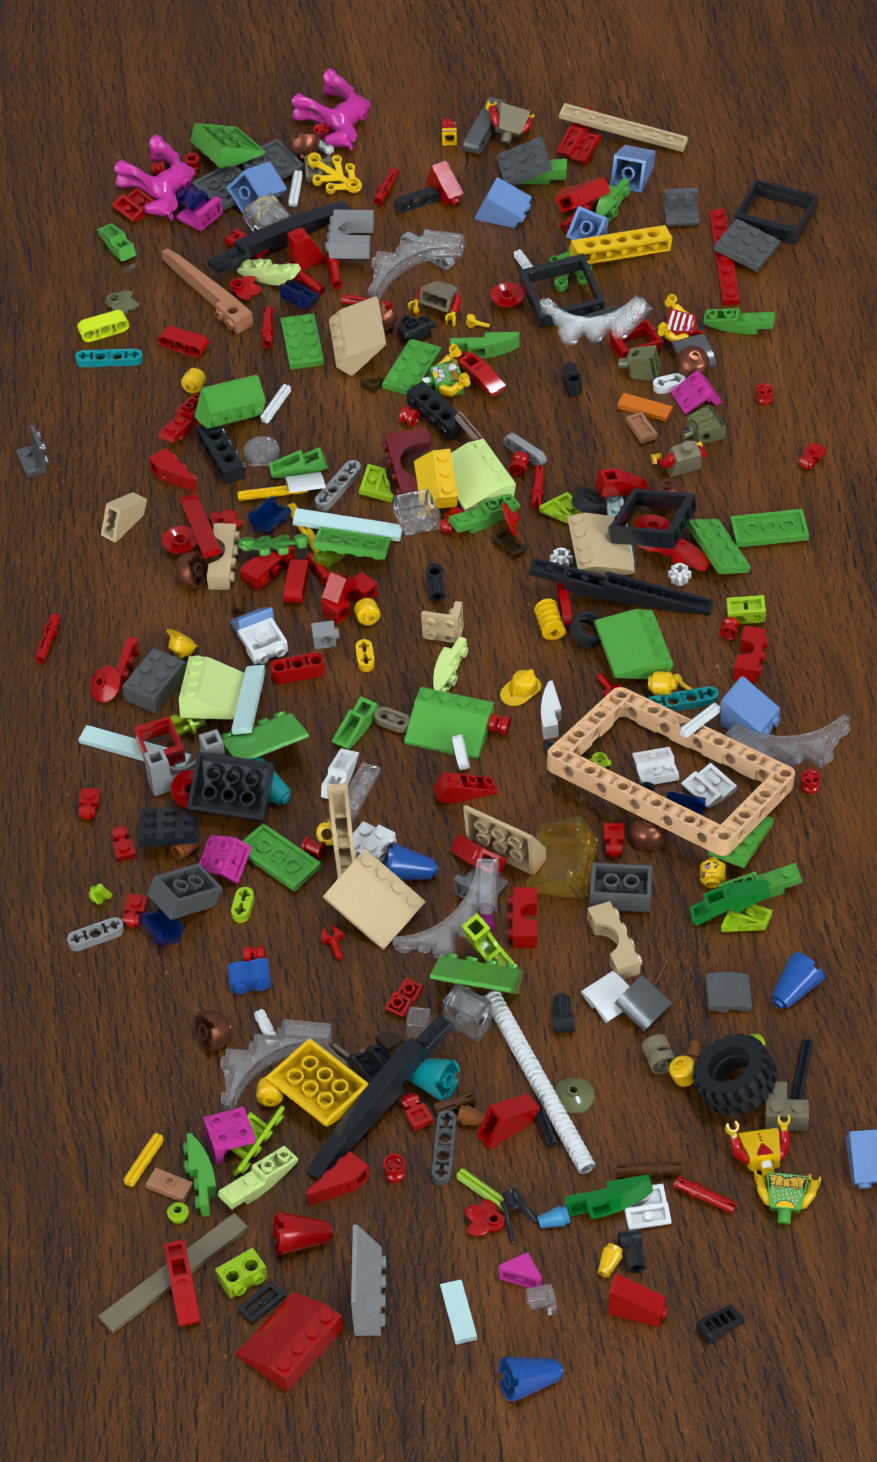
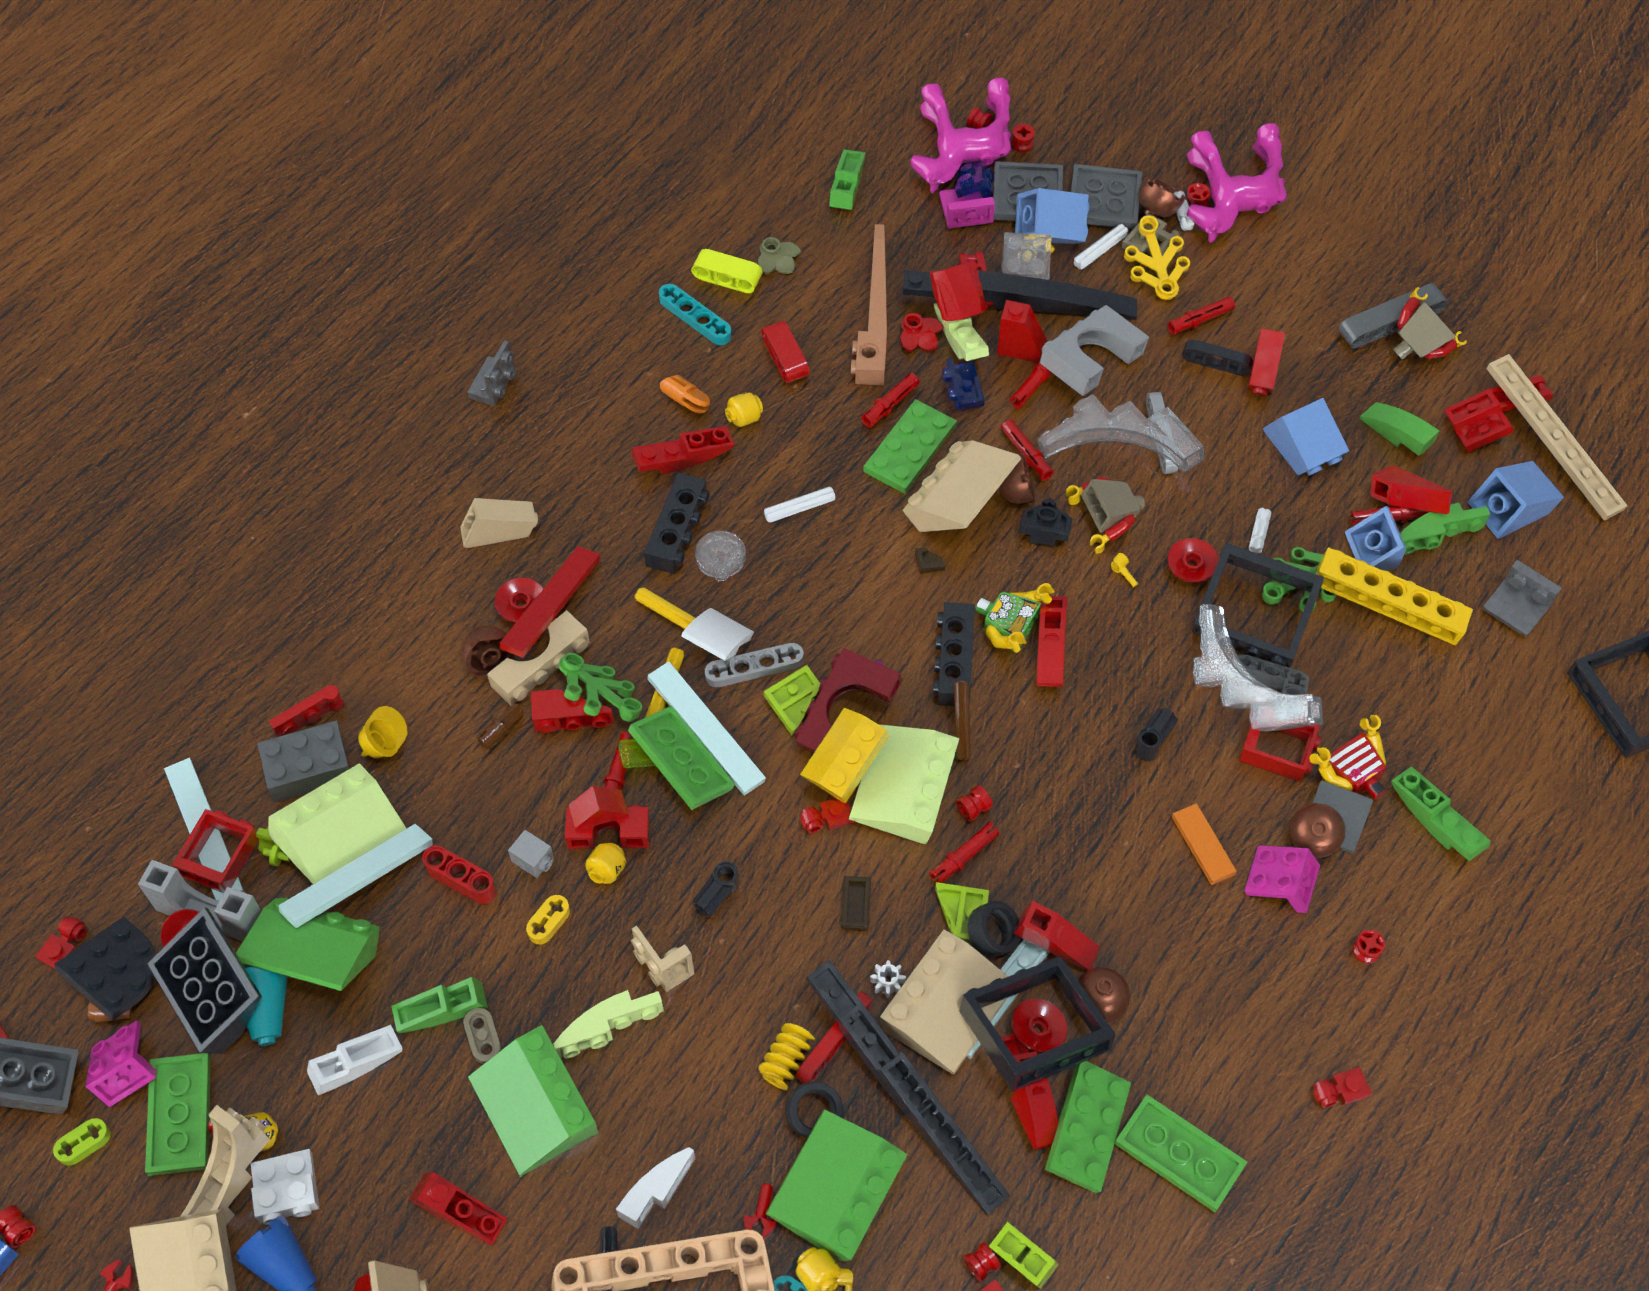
camera: 40 degrees right, 10 degrees up
(49, 632) = (275, 611): red pin -> none
(88, 802) = (93, 855): red plate -> none
(105, 684) = (256, 722): red dish -> none
(133, 205) = (906, 144): red slope -> none
(147, 394) = (685, 393): none -> orange arm
(169, 469) = (604, 497): red slope -> none
(224, 144) = (1076, 140): bright green slope -> none
(226, 517) = (594, 612): red plate -> none
(230, 402) = (735, 469): bright green slope -> none
(251, 618) = (480, 770): medium blue slope -> none
(254, 247) = (958, 291): none -> red slope
(263, 641) = (460, 807): white plate -> none
(268, 515) = (638, 644): clear blue bracket -> none
(296, 581) = (579, 756): red beam -> none
(299, 464) = (740, 604): bright green slope -> none
(309, 282) = (992, 369): red pin -> none
(361, 786) = (338, 1105): clear plate -> none
(409, 416) = (919, 637): red wheel -> none
(411, 366) = (993, 571): bright green plate -> none
(416, 512) = (782, 778): clear brick -> none
(449, 130) = (1345, 293): leg -> none
(460, 752) = (500, 1154): white beam -> none
(486, 515) = (865, 843): bright green slope -> none
(489, 346) = (1107, 615): bright green slope -> none
(499, 724) = (583, 1153): red wheel -> none
(511, 518) = (878, 874): red dish -> none
(517, 444) = (1001, 789): light grey beam -> none
(520, 688) = (664, 1121): yellow piece -> none
(524, 161) = (1387, 398): dark grey plate -> none
(641, 427) = (1169, 870): nougat plate -> none
(642, 363) = (1254, 782): olive torso -> none
(666, 383) = (1266, 832): white beam -> none
(679, 574) = (1000, 1117): white gear -> none
(682, 458) = (1171, 960): dark tan torso -> none
(704, 426) = (1244, 932): olive torso -> none
(725, 265) = (1512, 707): red plate -> none
(747, 245) = (1554, 713): dark grey plate -> none

